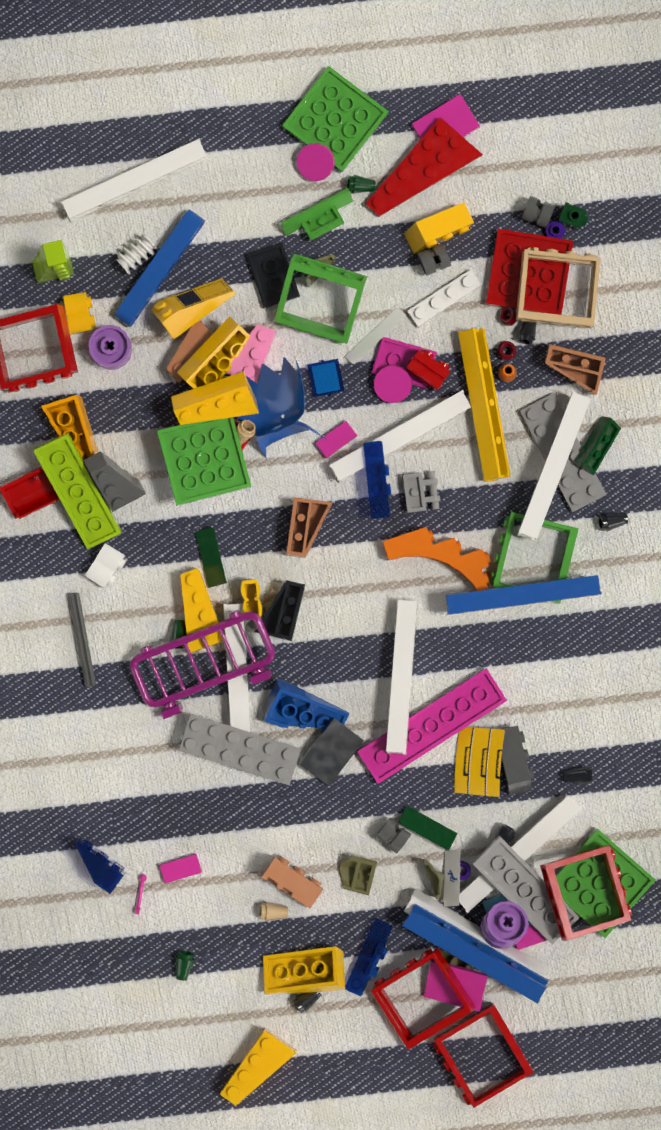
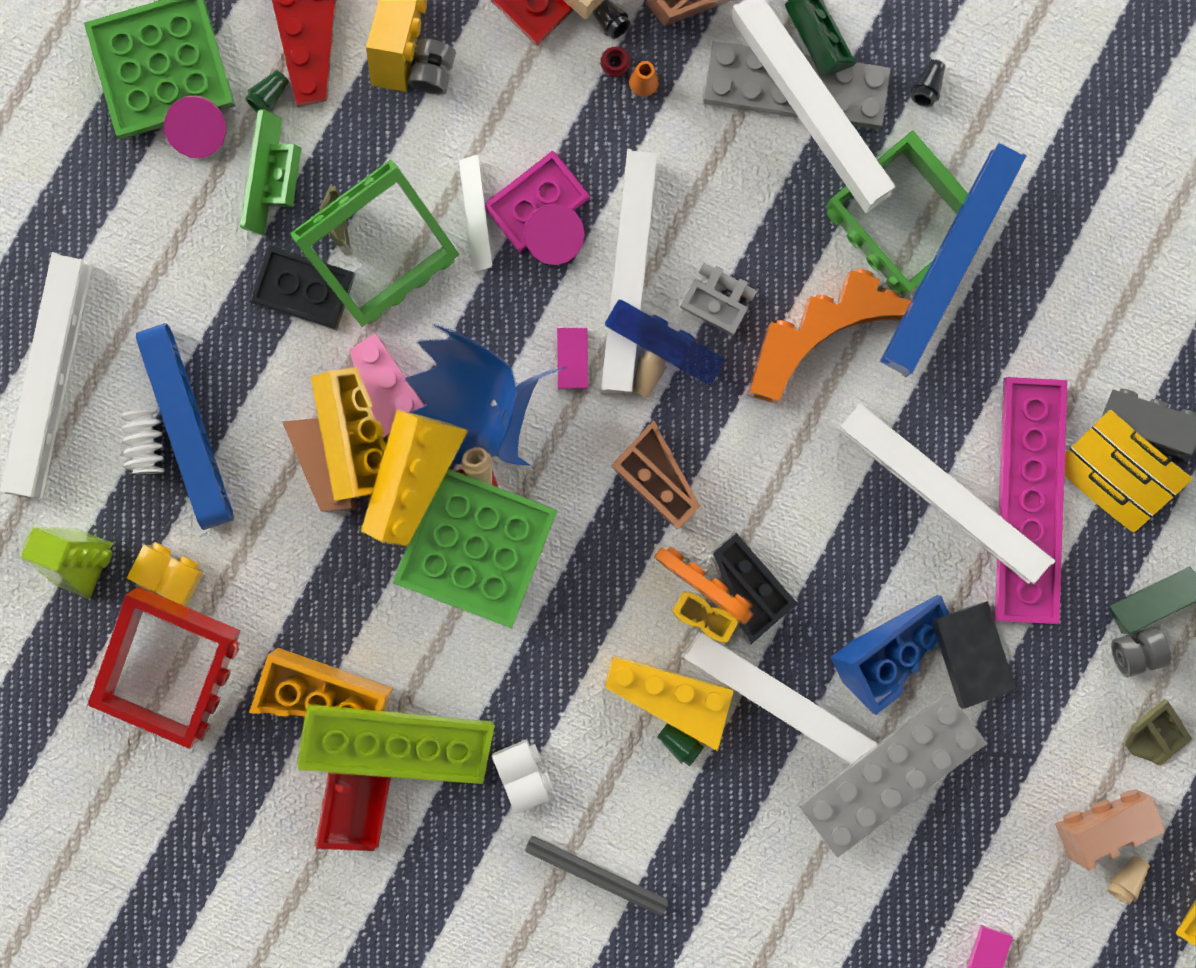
camera: 60 degrees left, 0 degrees up
(105, 337) = (222, 569): medium lavender wheel -> none
(113, 482) = (417, 690): dark grey wedge -> none
(168, 701) = (766, 818): magenta bar -> none
(188, 307) = (261, 429): yellow slope -> none
(211, 557) = (609, 629): dark green slope -> none
(267, 592) = (713, 590): none -> orange plate
(325, 378) = (483, 315): clear blue piece -> none
(355, 483) = (648, 373): none -> tan cone
(428, 369) = (569, 173): red brick -> none
(444, 298) = (491, 92): white plate -> none
(484, 404) = (664, 136): yellow tile -> none
(505, 316) = (567, 26): dark red plate -> none

